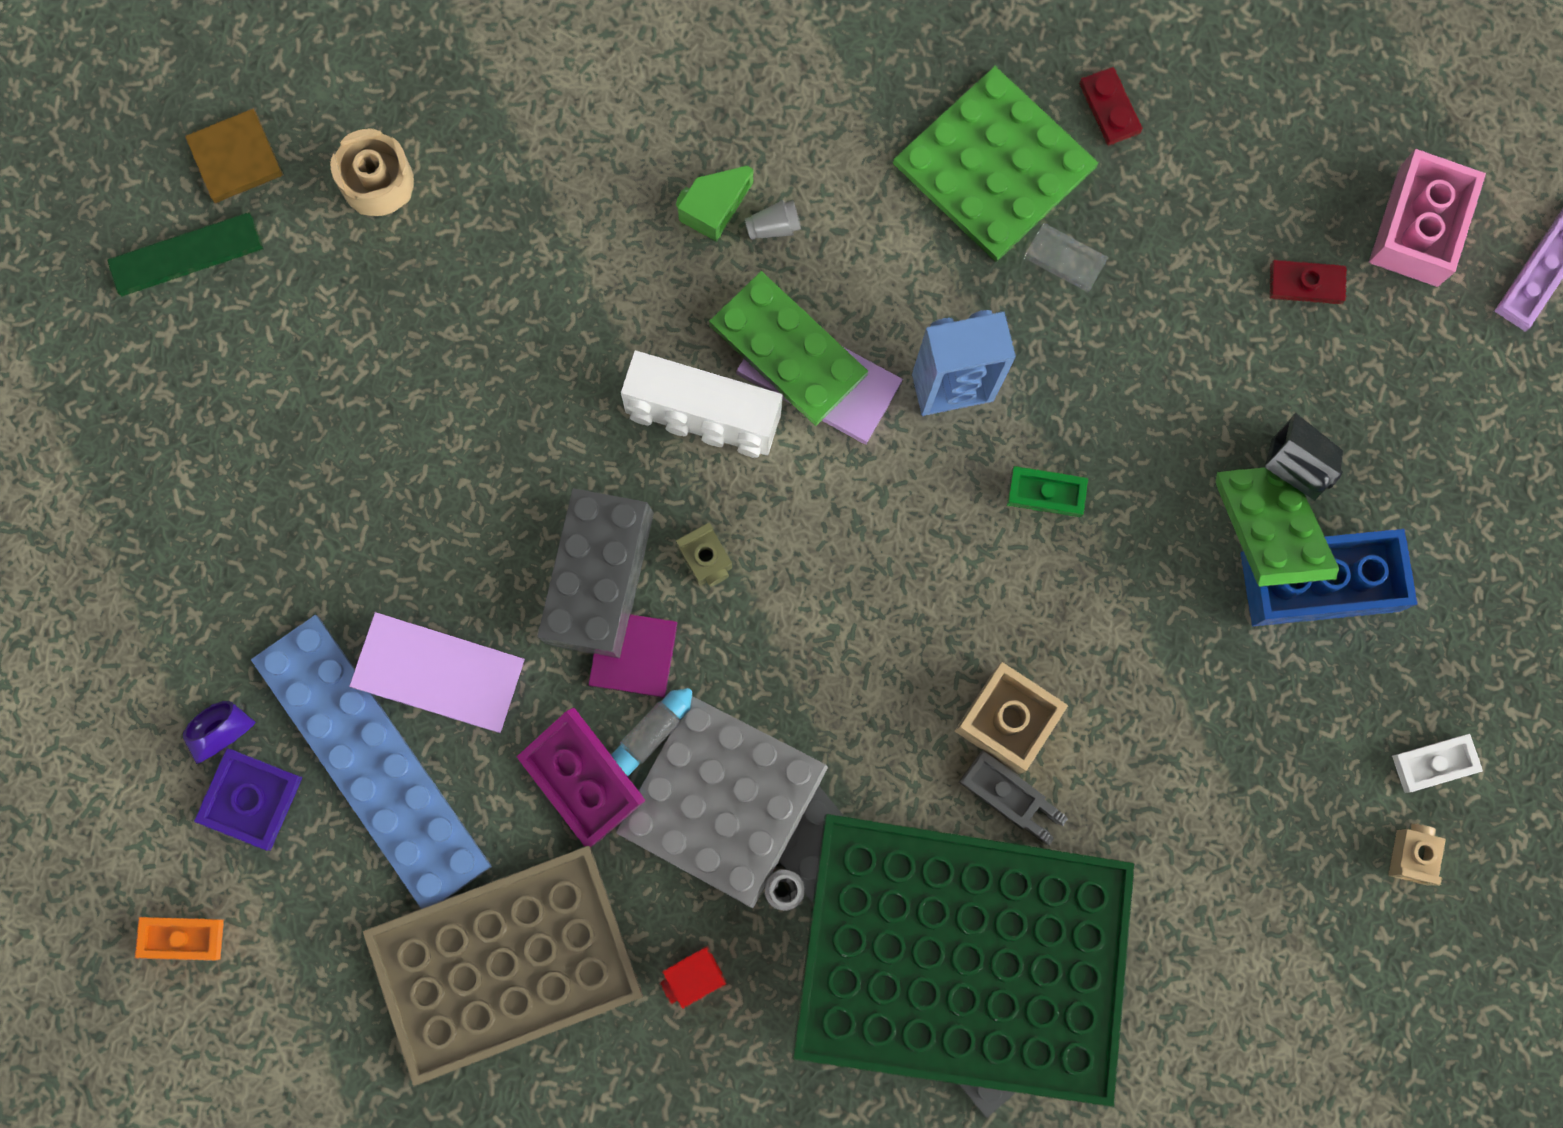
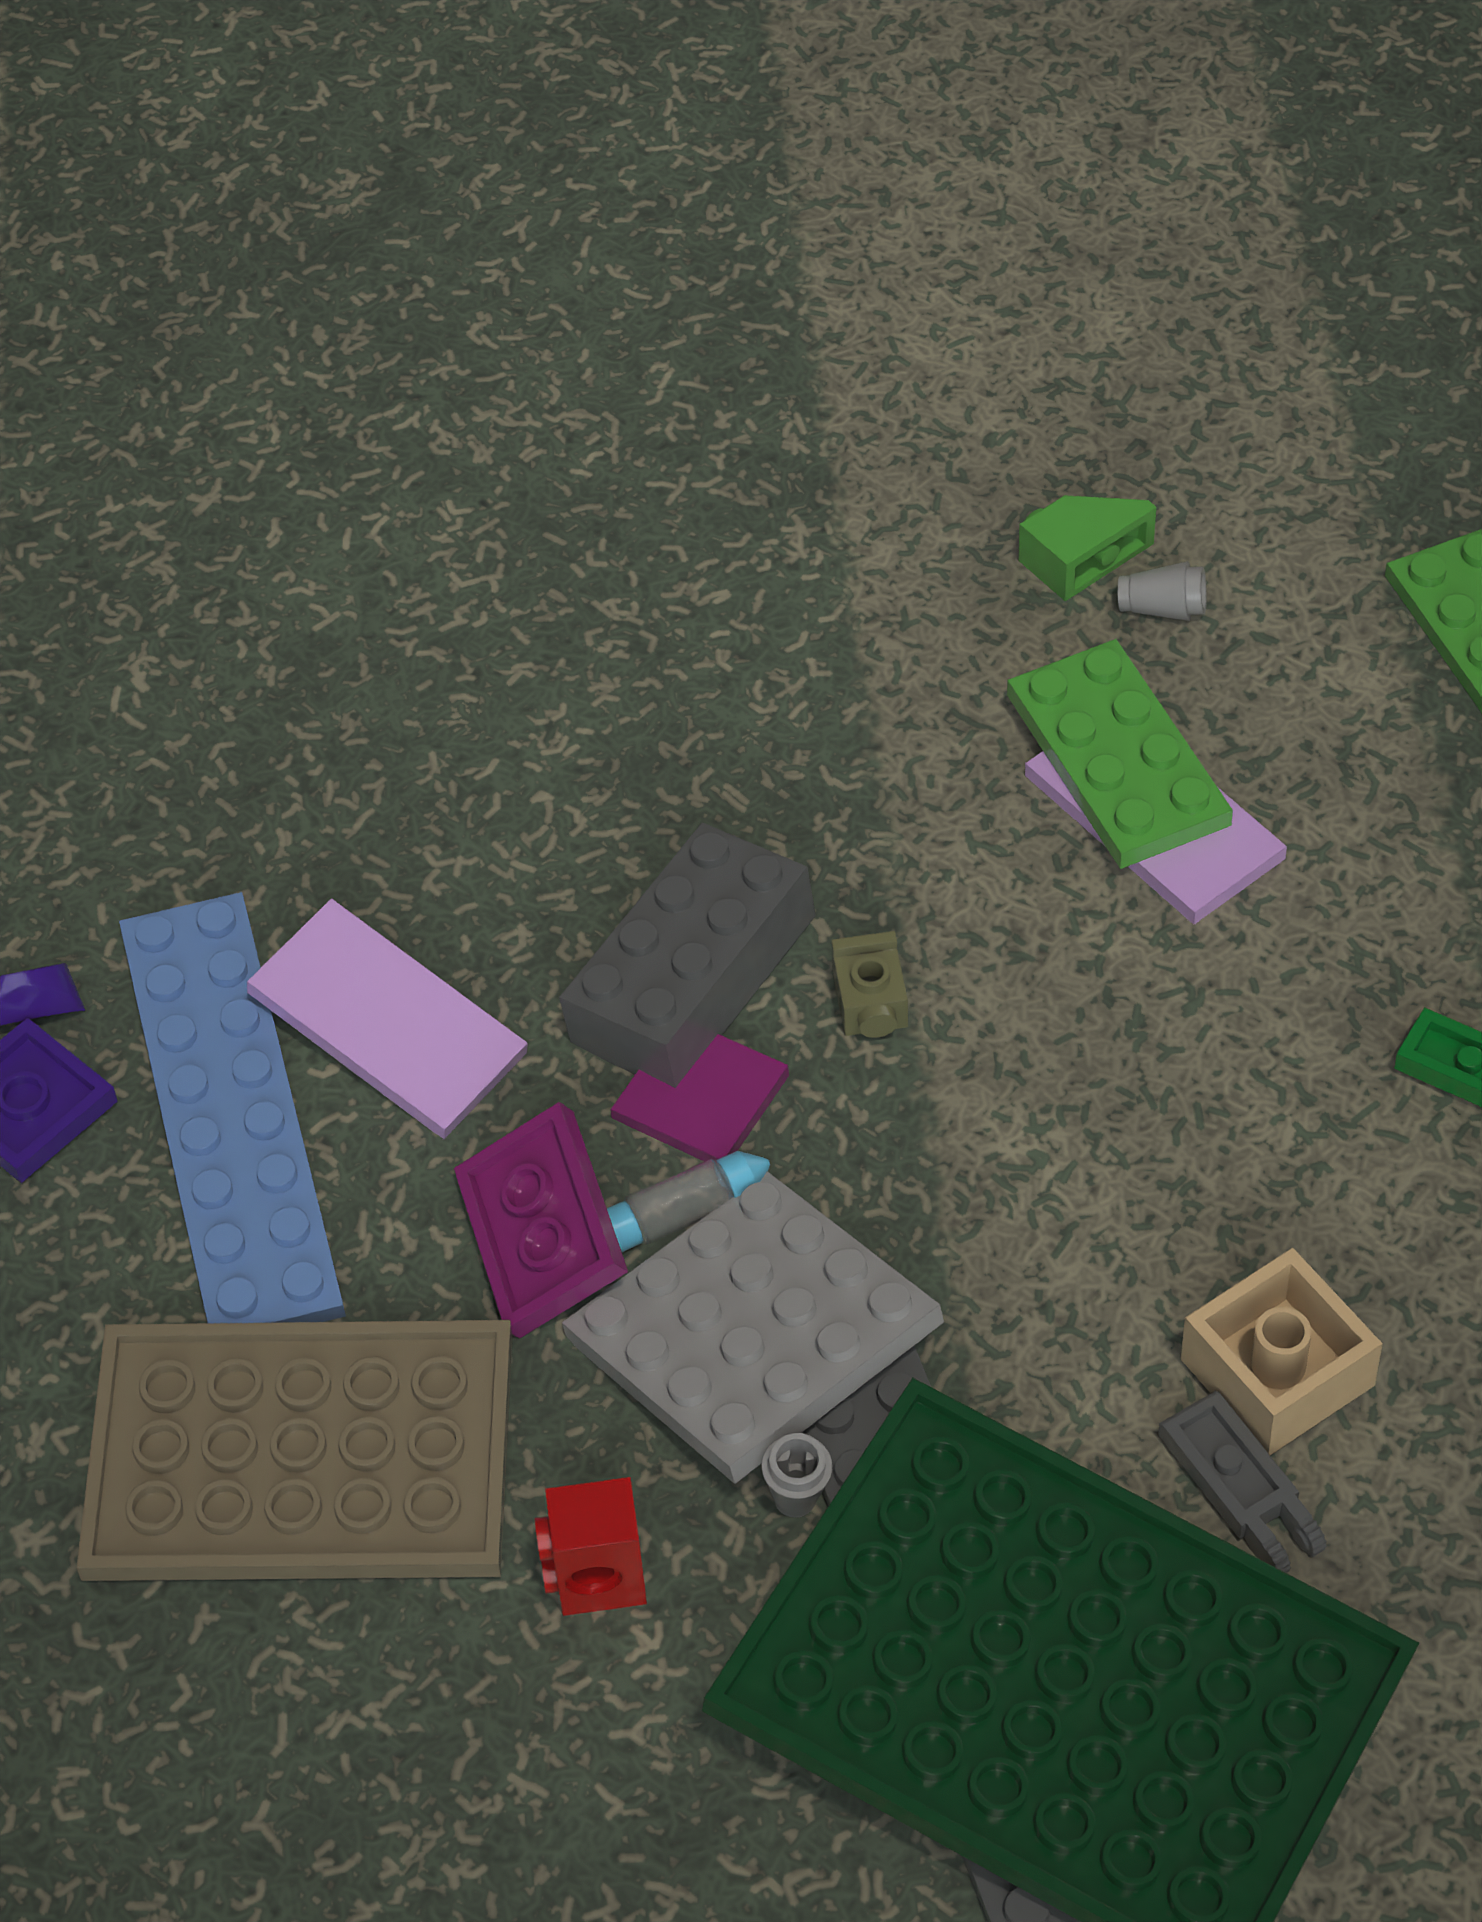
camera: 30 degrees right, 25 degrees down
(185, 254) = (277, 411): dark green tile -> none
(234, 155) = (403, 317): pearl gold tile -> none
(353, 170) = (588, 374): tan brick -> none
(701, 404) = (951, 776): white brick -> none
(962, 362) = (1379, 809): medium blue brick -> none

